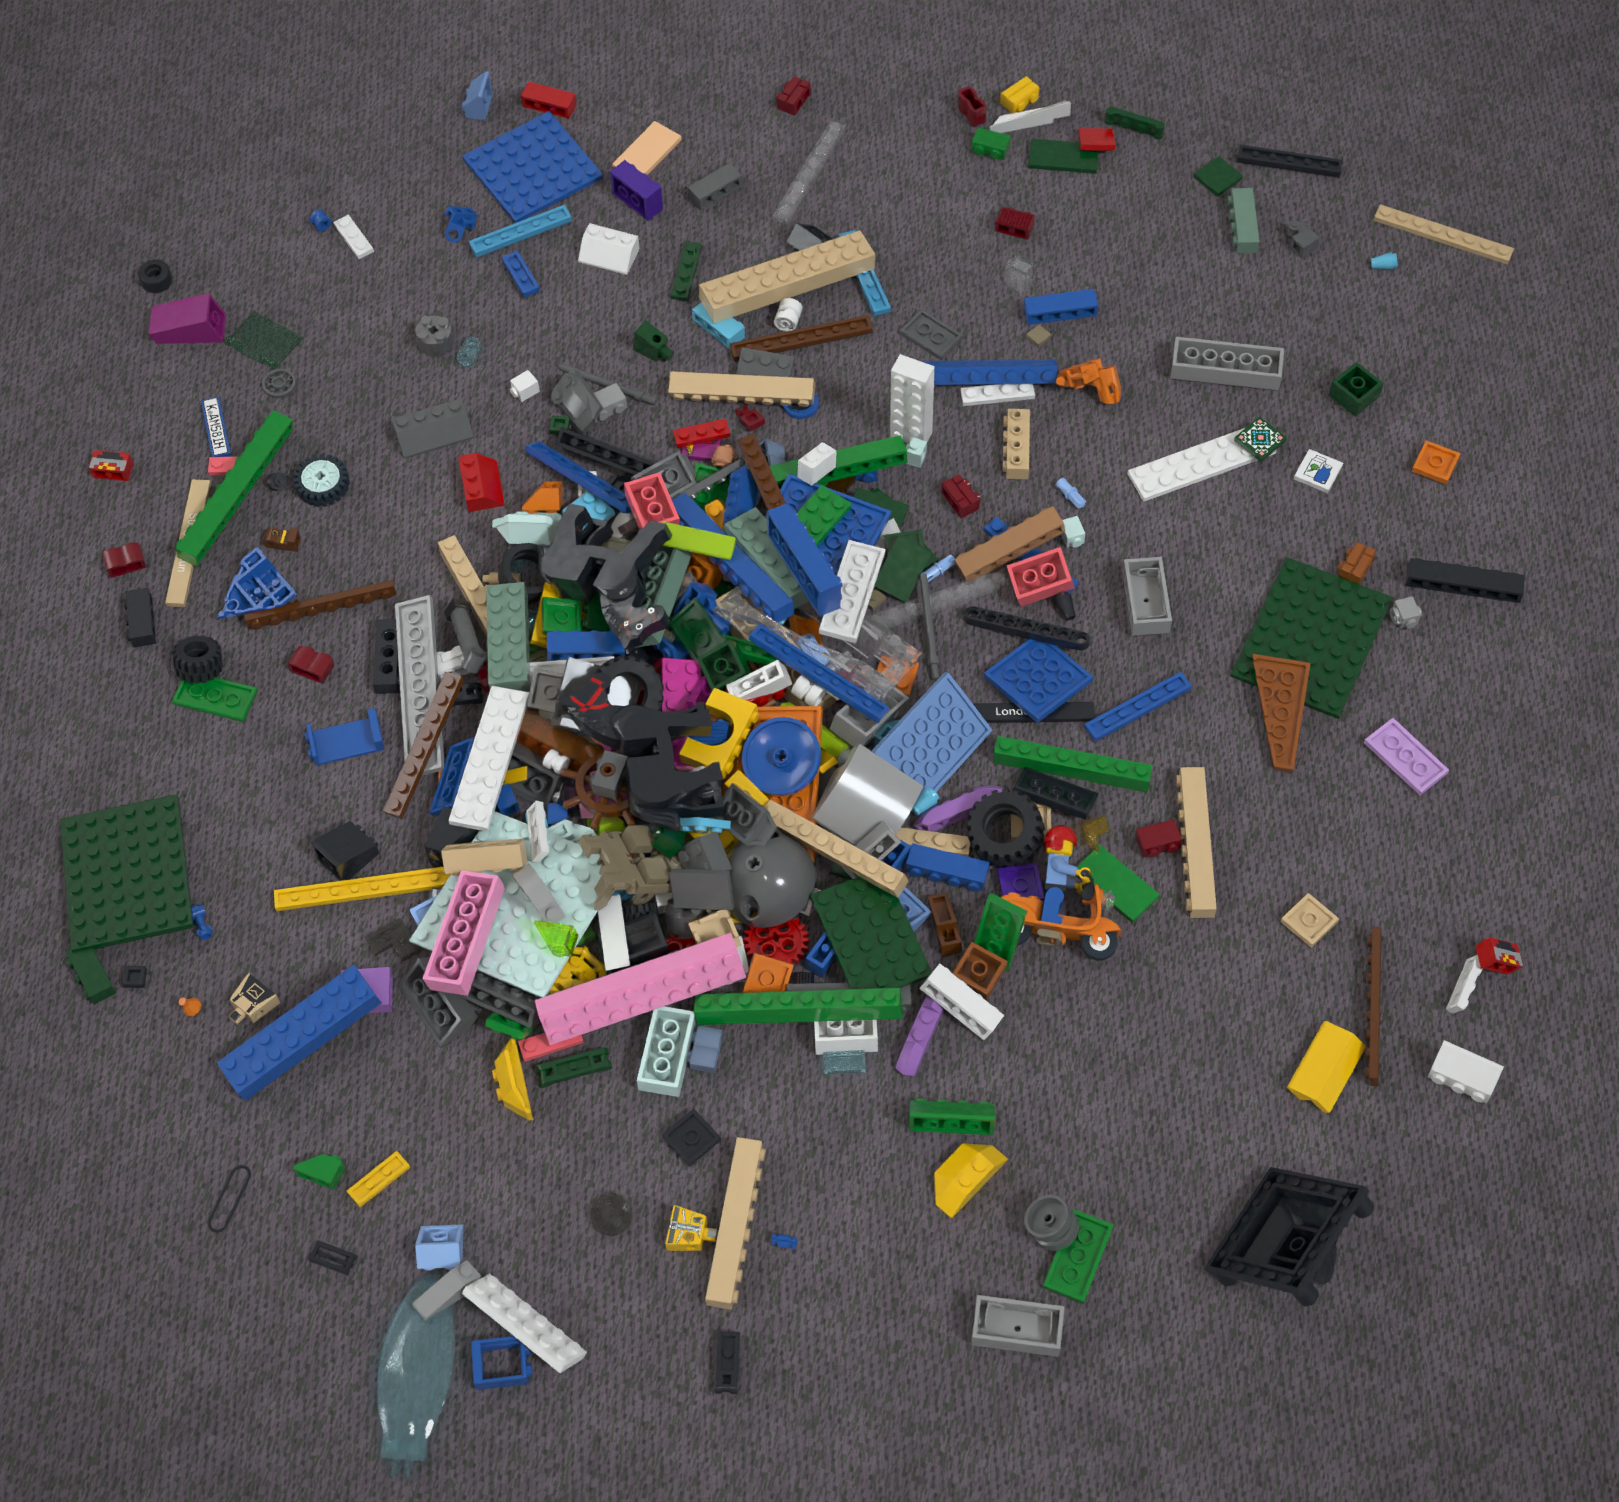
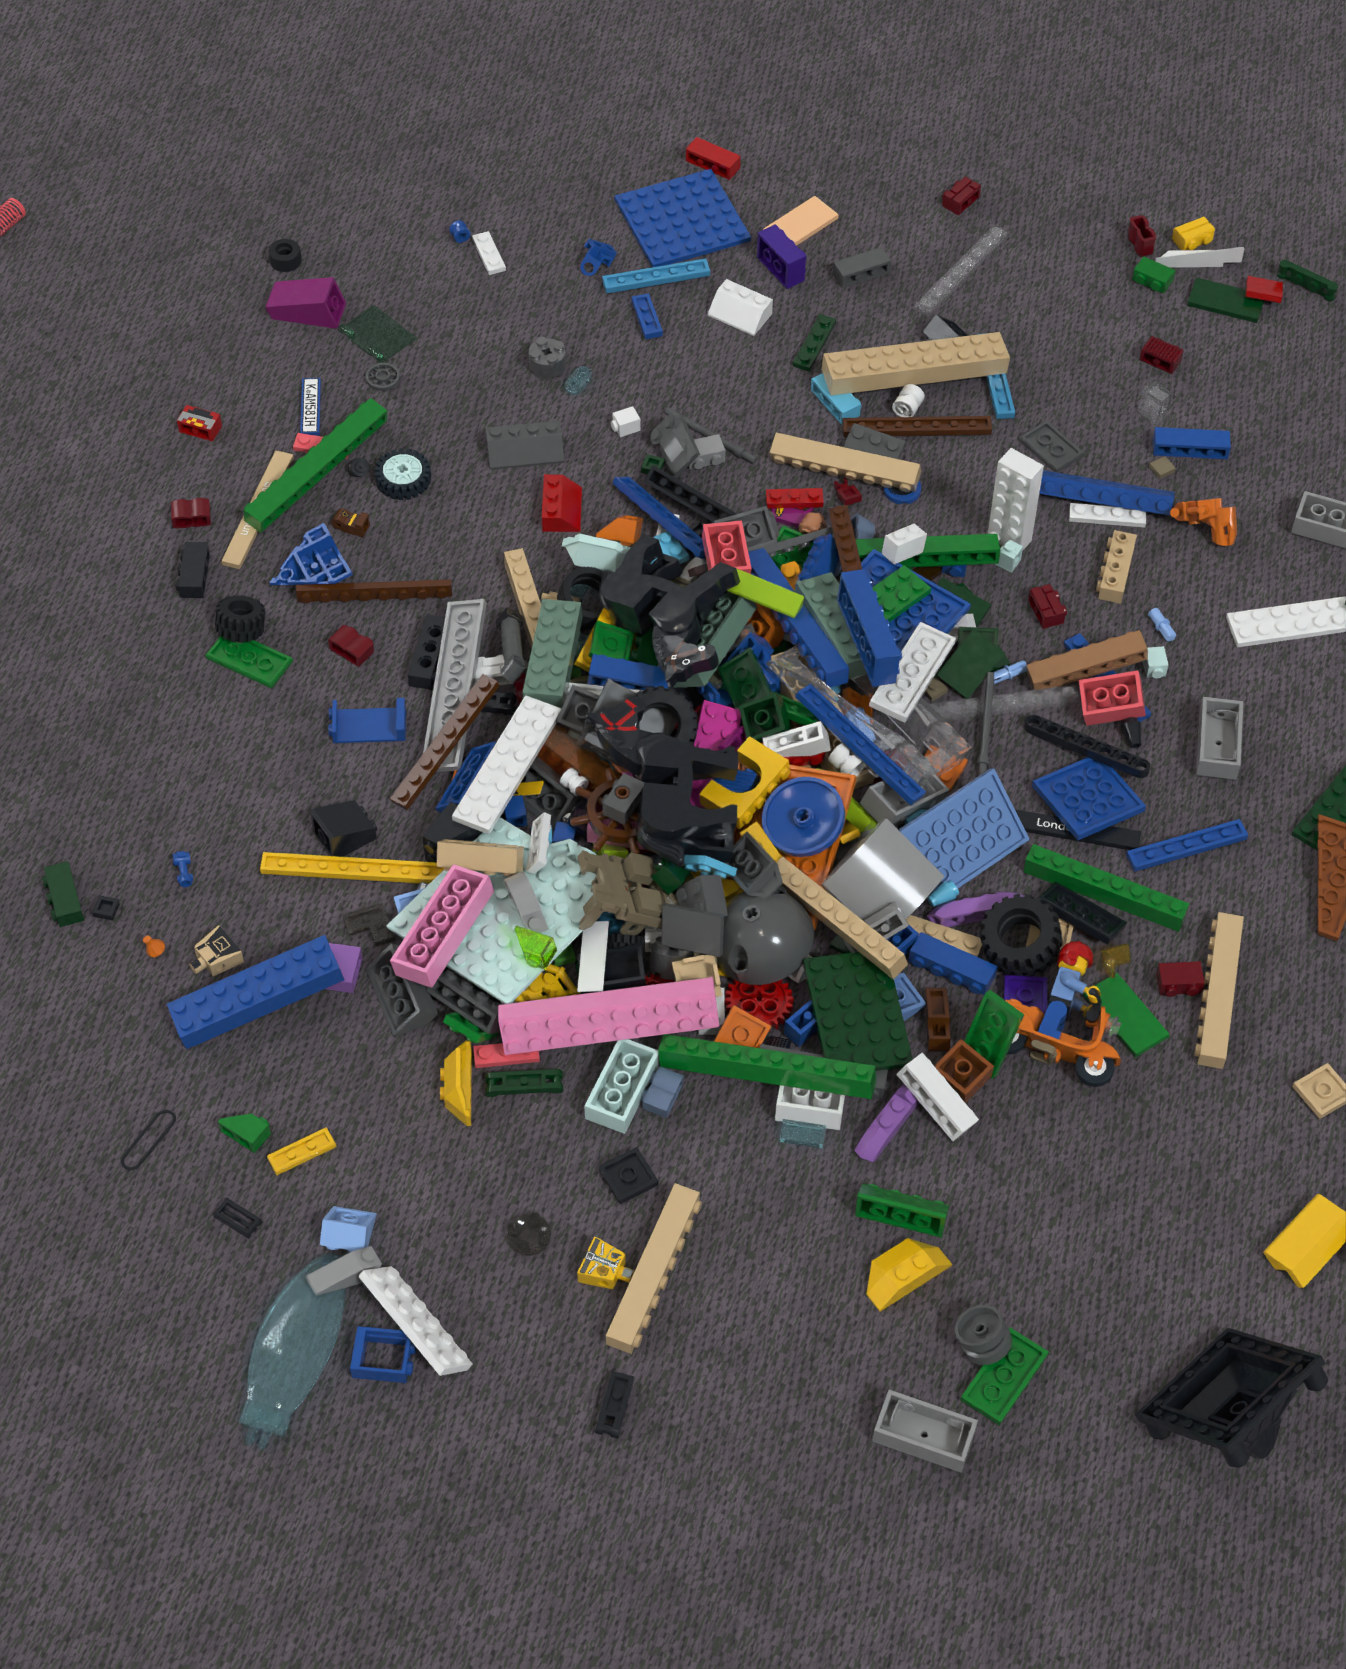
camera: 10 degrees right, 5 degrees down
(126, 874) = (121, 808): dark green plate -> none
(478, 97) = (643, 144): medium blue slope -> none
(651, 342) = (763, 402): dark green torso -> none
(784, 1241) = (700, 1297): blue piece -> none

